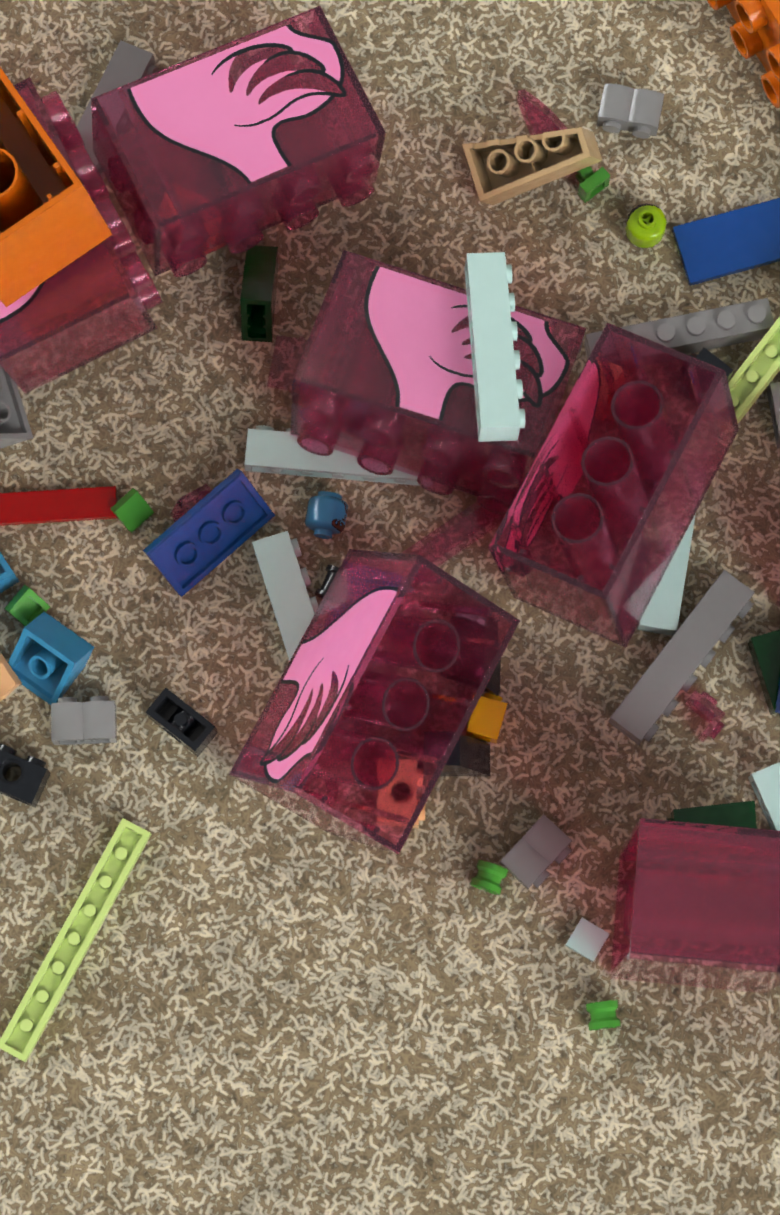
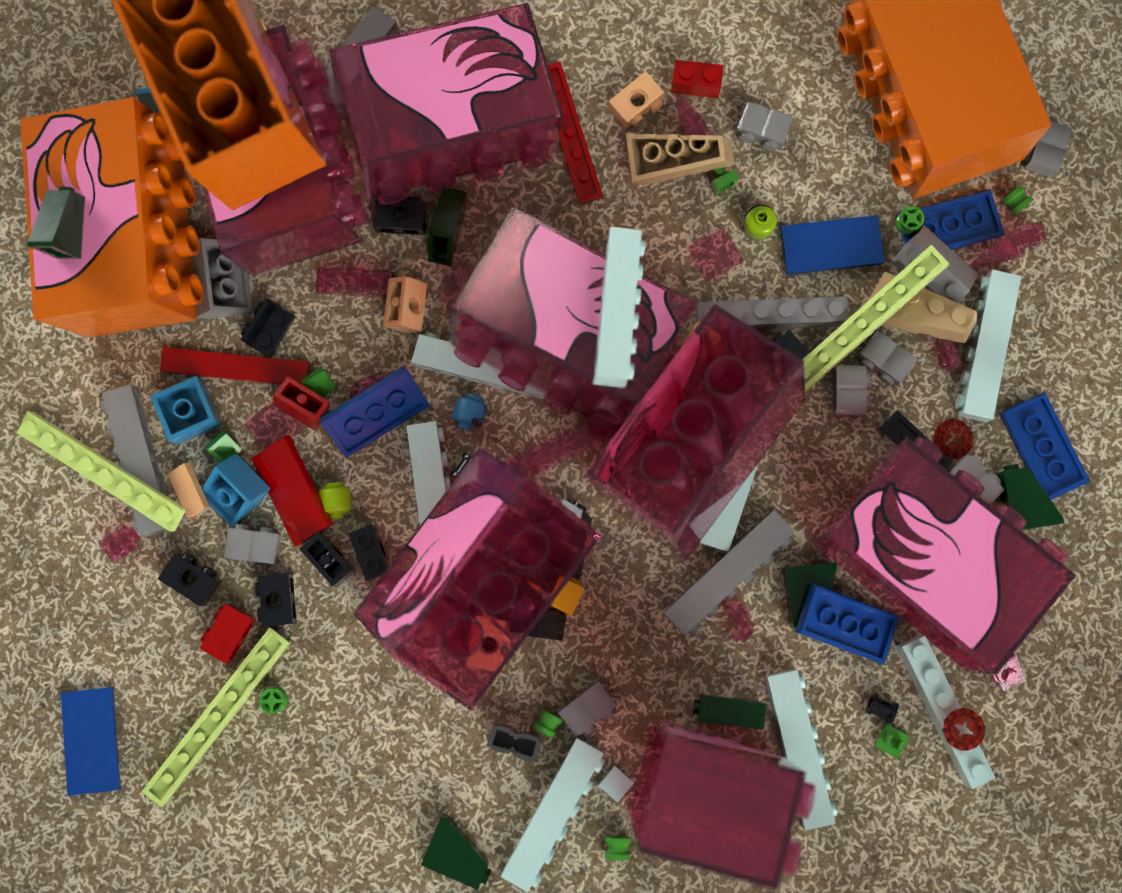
camera: 10 degrees right, 5 degrees up
(55, 453) = (267, 327): none -> black bracket
(70, 833) = (227, 633): none -> red brick
(83, 572) = (271, 425): none -> clear pink piece
(115, 536) = (301, 403): none -> red brick
(117, 765) = (286, 611): none -> black brick
(122, 645) = (292, 490): none -> red tile
(140, 902) = (268, 700): none -> bright green wheel
(158, 379) = (353, 282): none -> clear pink slope
(177, 649) = (336, 499): none -> lime head
(213, 298) = (411, 224): none -> black brick
(224, 396) = (405, 304): none -> light nougat brick
(232, 704) = (369, 552): none -> black brick
(403, 174) = (574, 142): none -> red plate
(403, 1059) = (456, 855): none -> dark green slope
(463, 907) = (507, 740): none -> dark grey brick
(472, 88) = (642, 89): none -> light nougat brick
(515, 987) = (552, 814): none -> light aqua brick
(537, 65) = (697, 78): none -> red brick
(597, 275) = (715, 254): none -> clear pink piece

